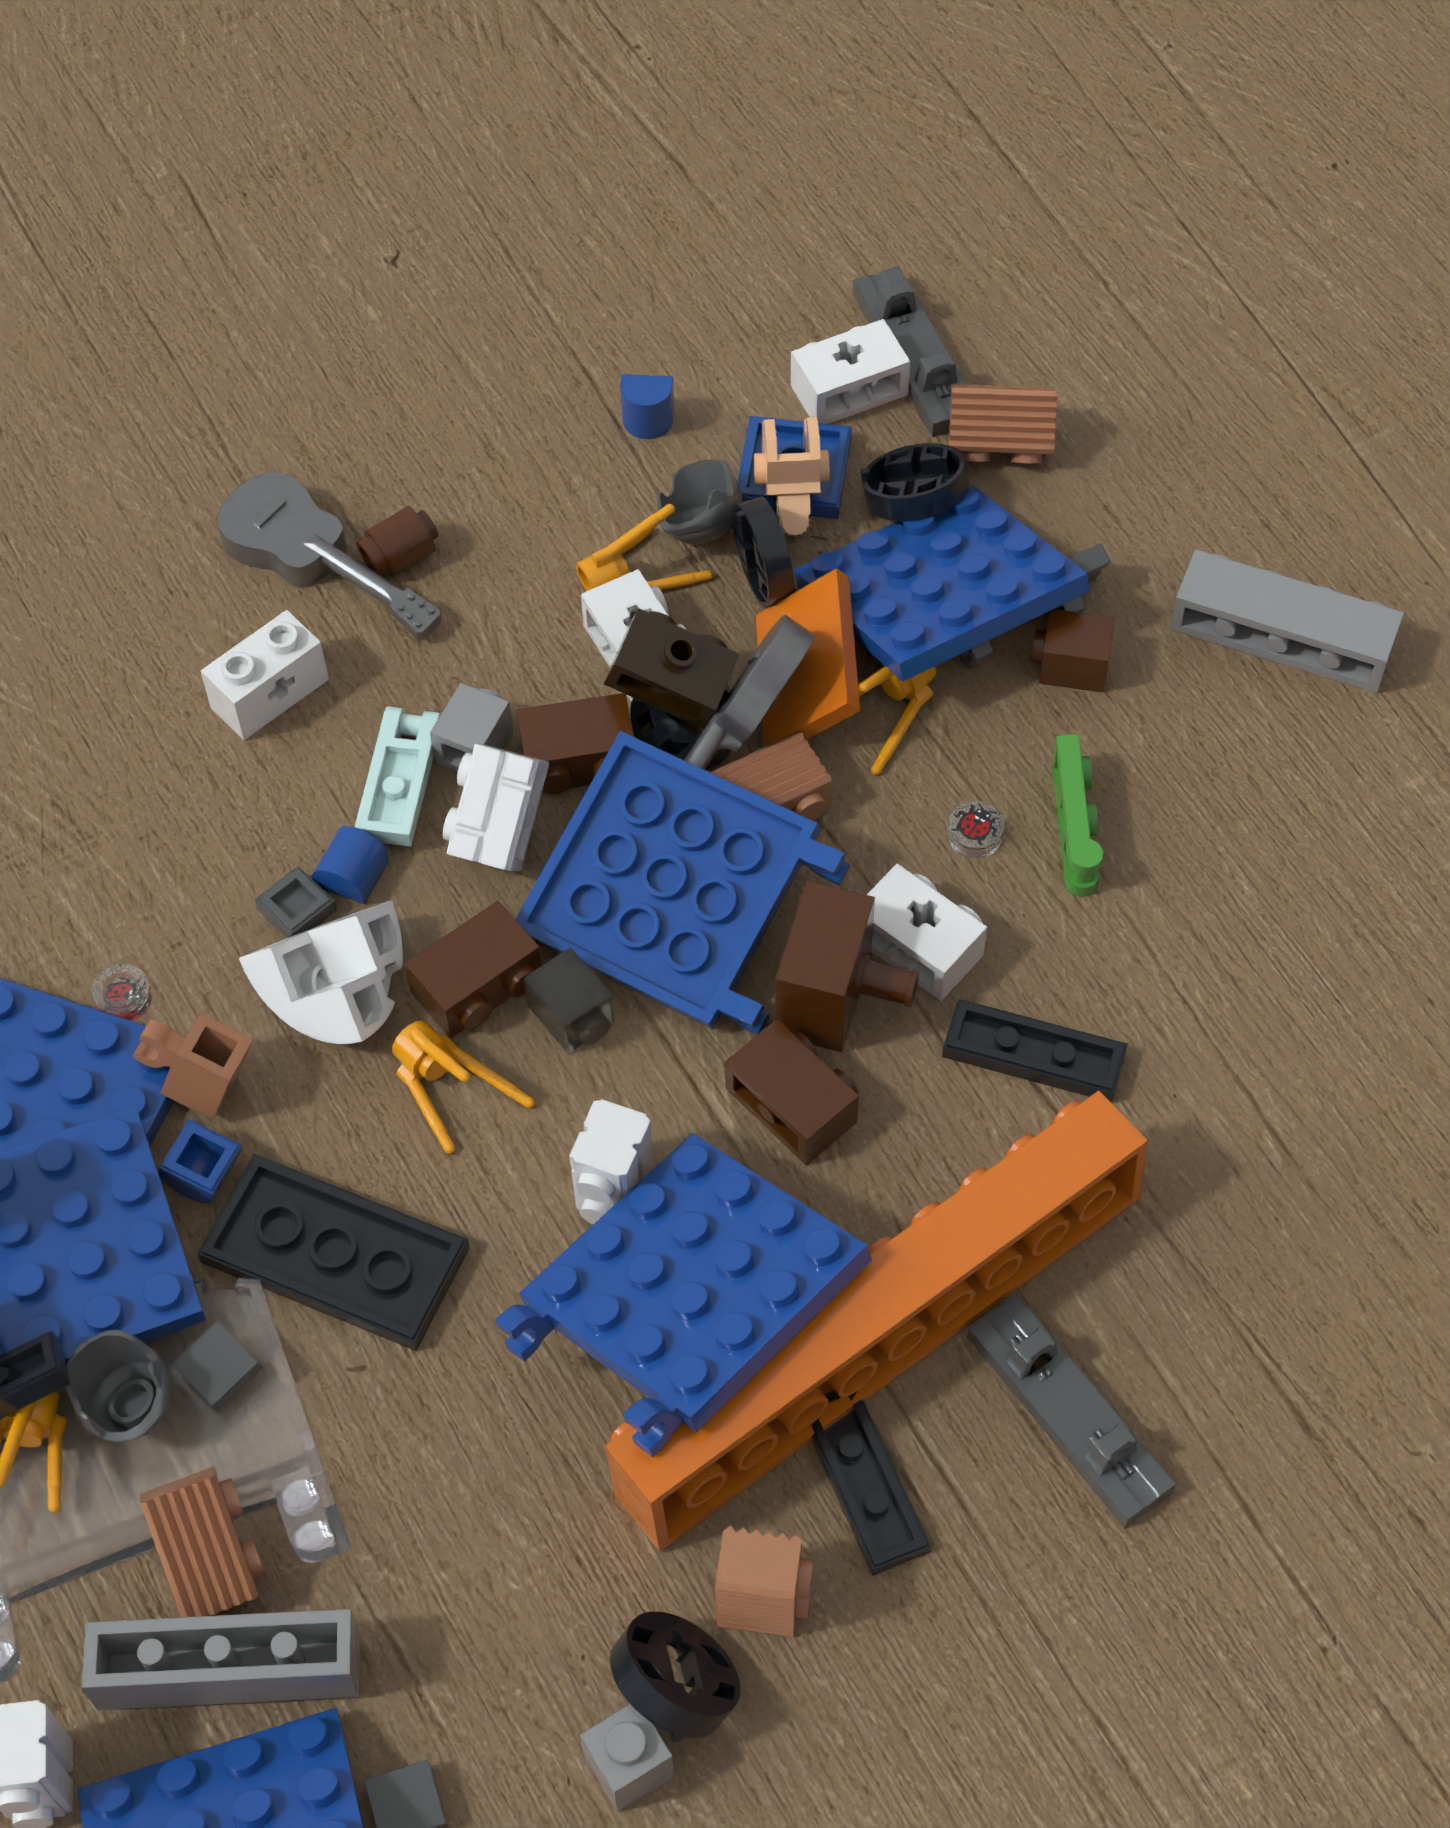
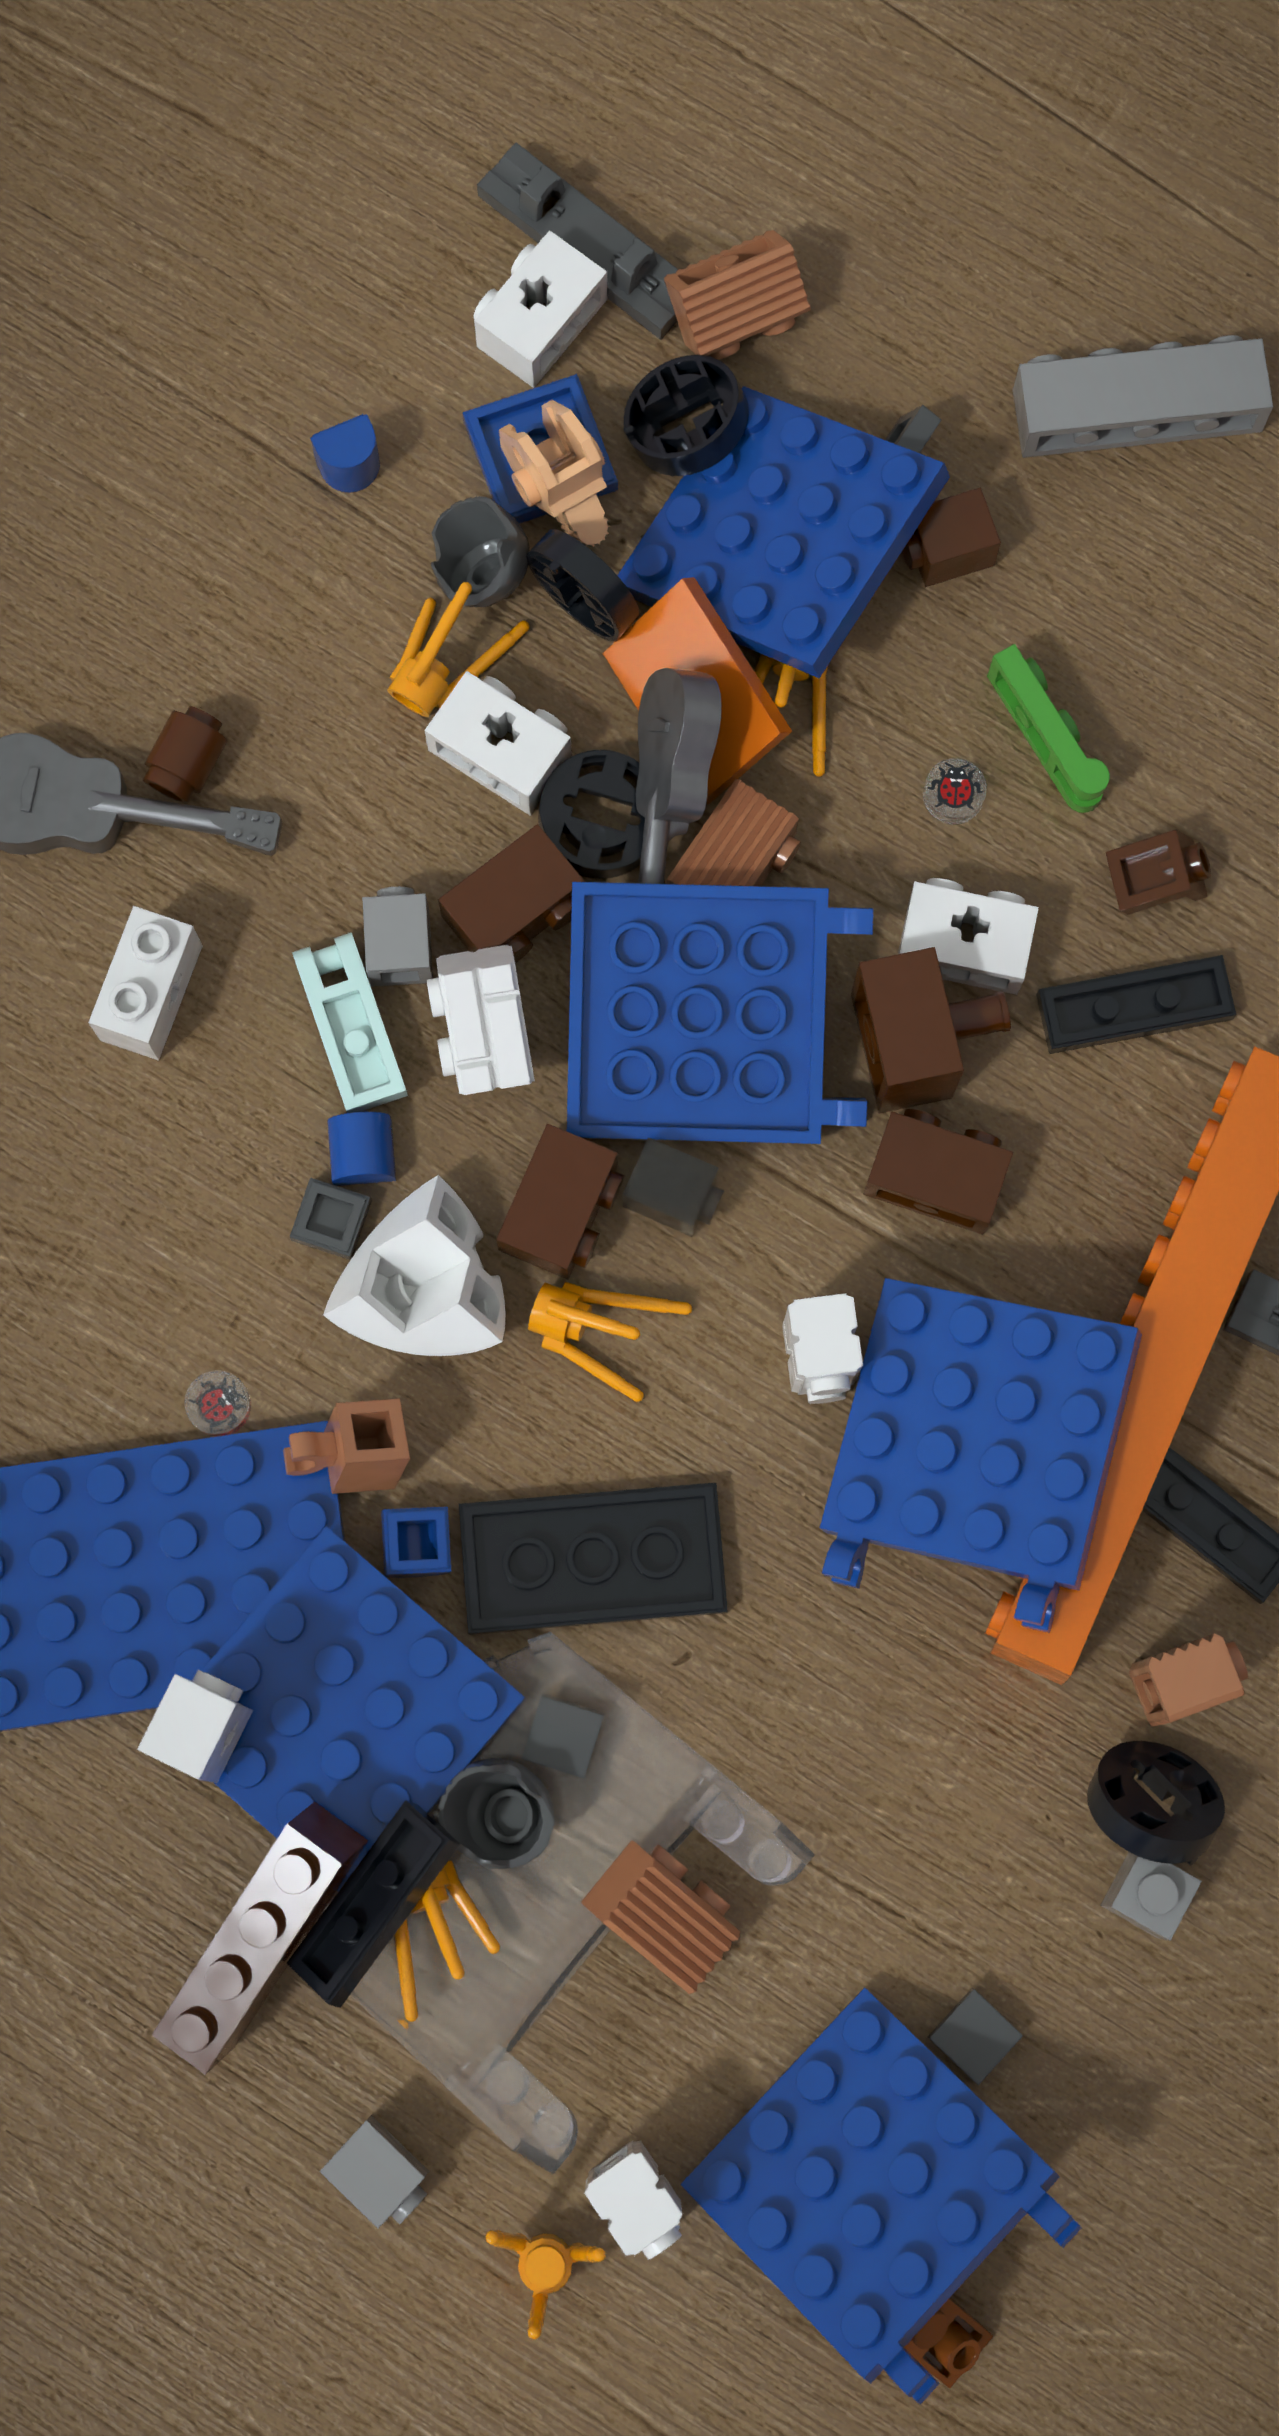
camera: 30 degrees left, 20 degrees up
(221, 1659) = (746, 2007): light grey brick -> none
(672, 668) = (576, 776): dark brown brick -> none
(1109, 955) = (1158, 871): none -> reddish brown bracket

